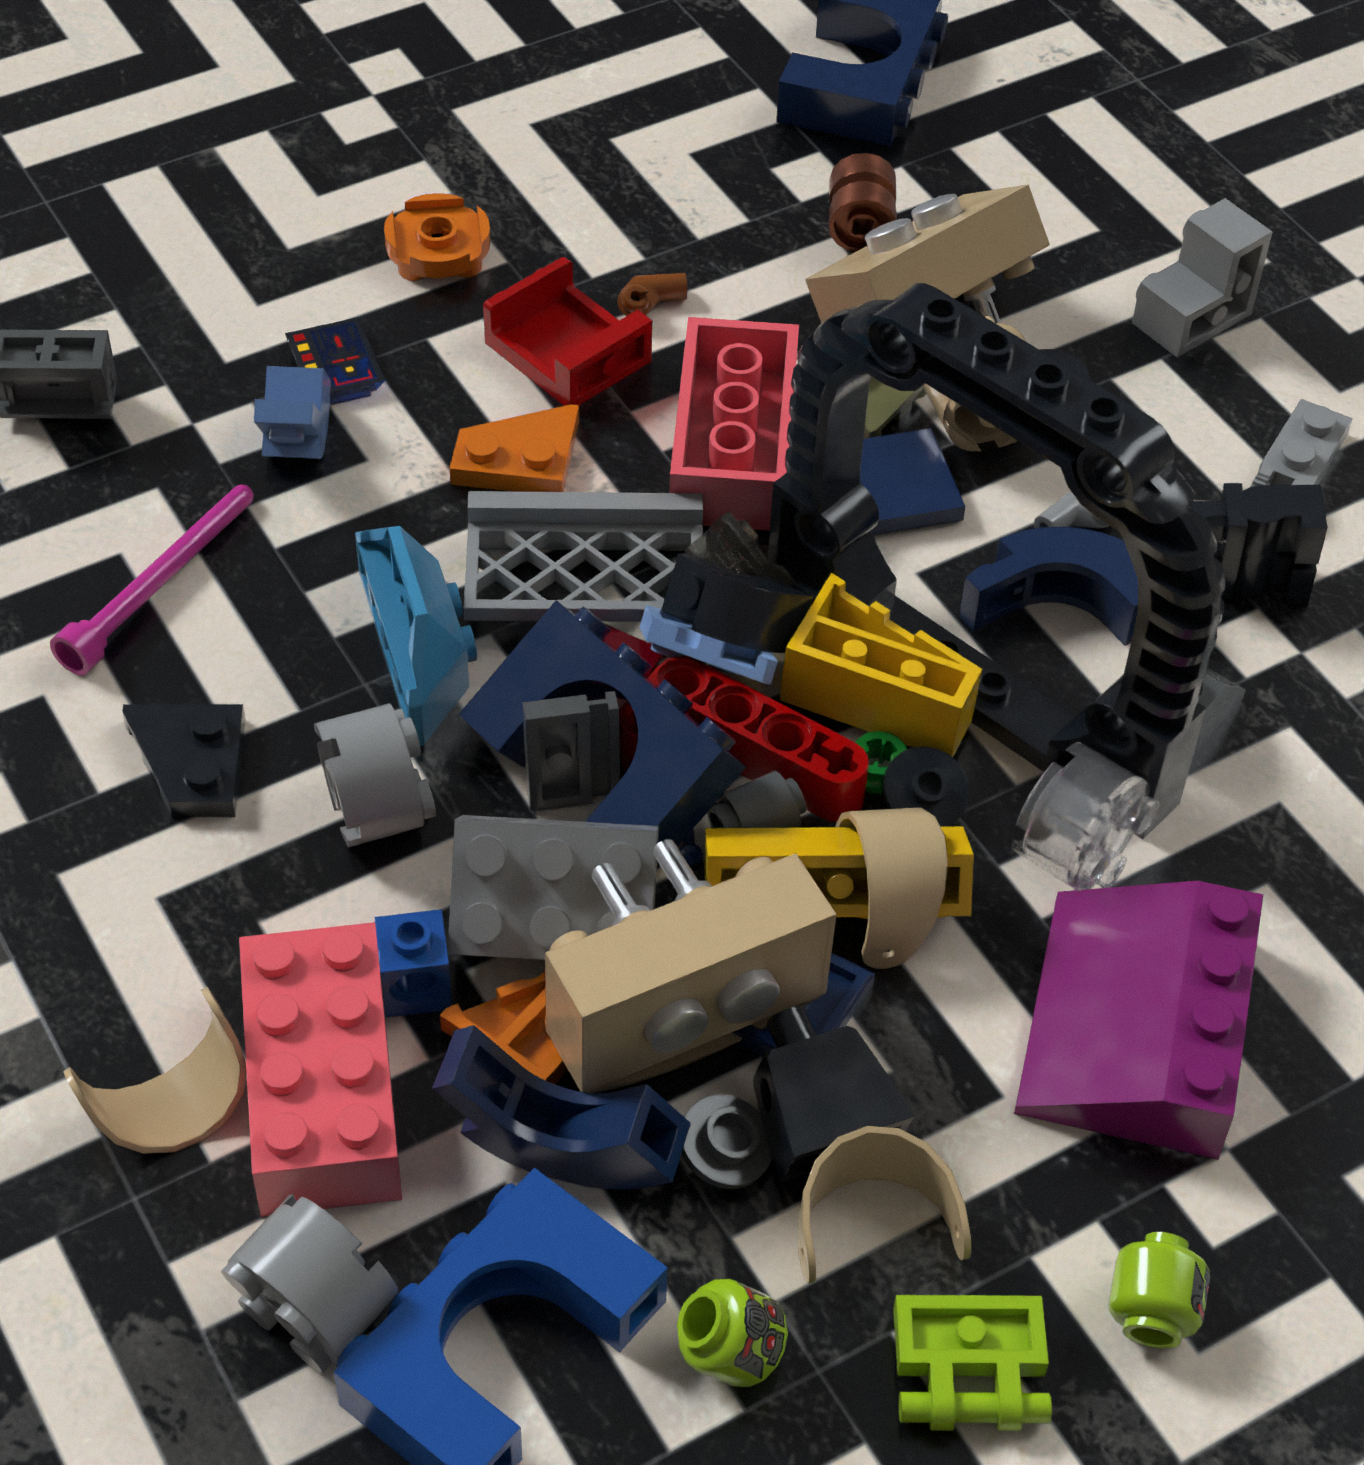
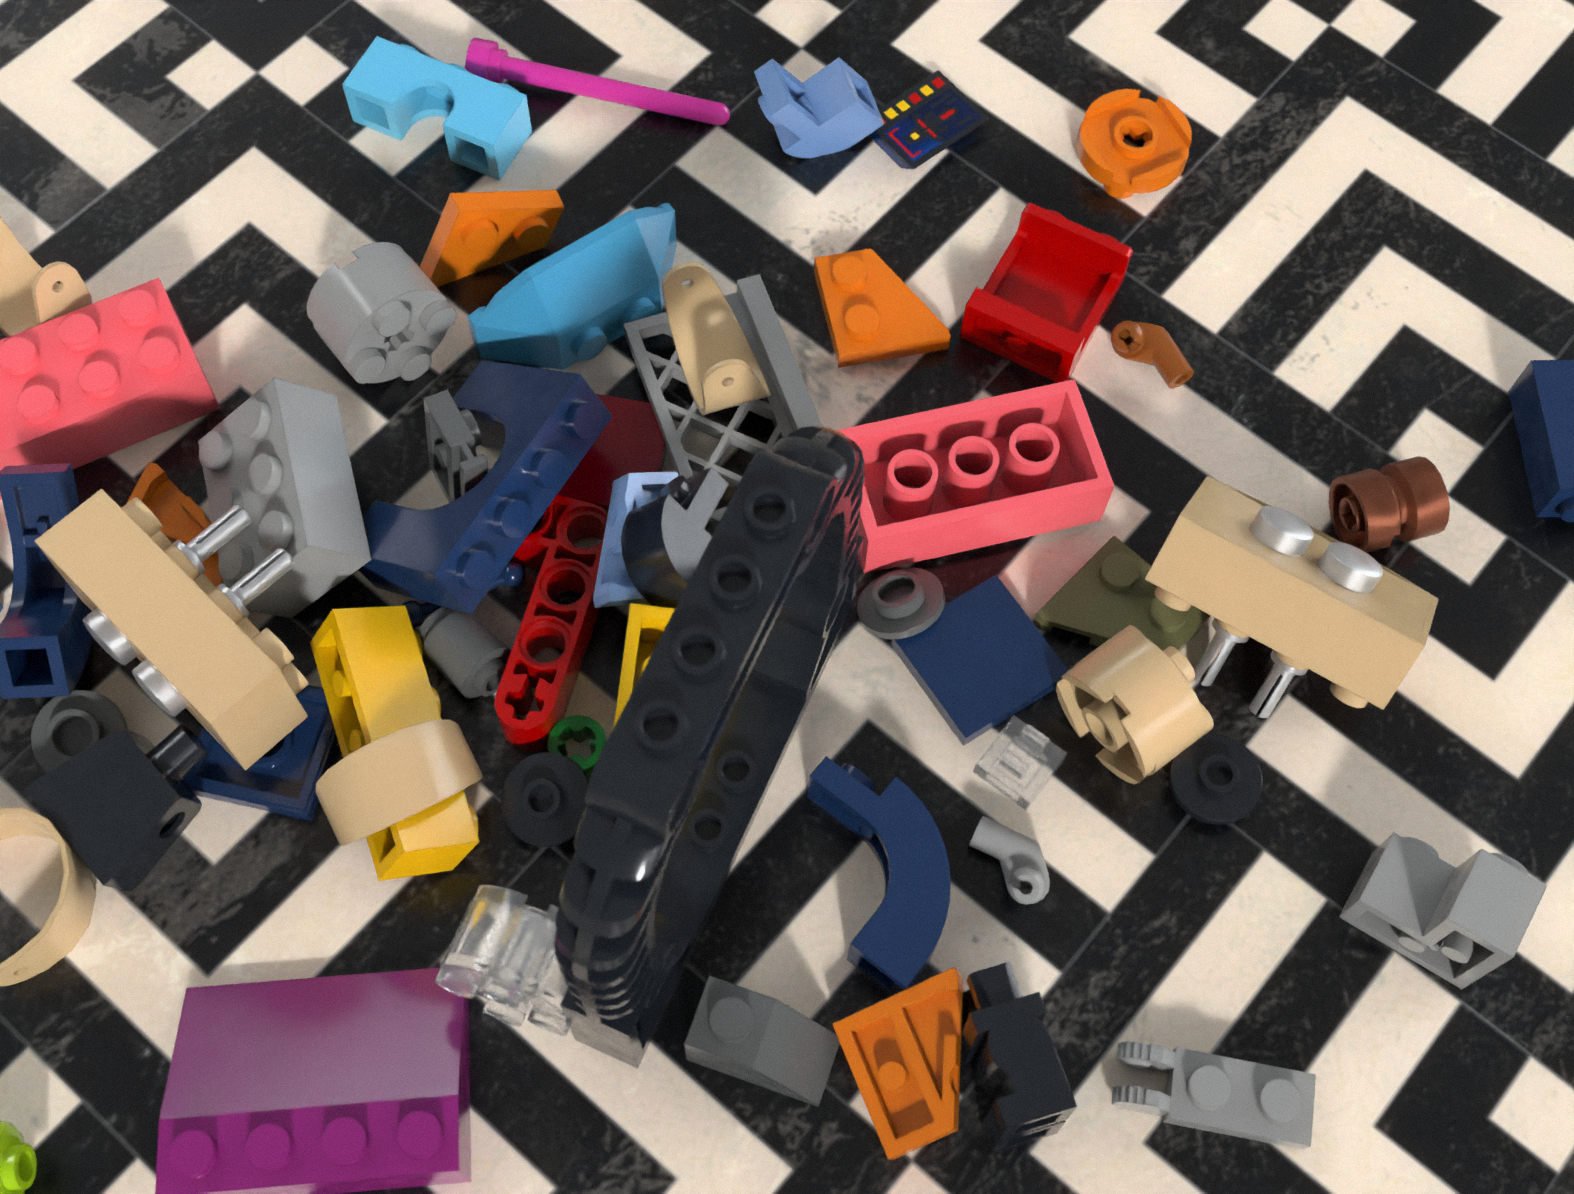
camera: 70 degrees right, 15 degrees up
(154, 659) = (400, 86): none -> medium azure arch
(191, 754) = (397, 187): black wing -> none
(308, 676) = (489, 230): none -> orange wing
(413, 963) = (188, 413): blue brick -> none
(547, 550) = (710, 341): none -> tan piece
(994, 484) = (1020, 762): none -> clear tile
(1258, 622) = (909, 1061): none -> orange wing

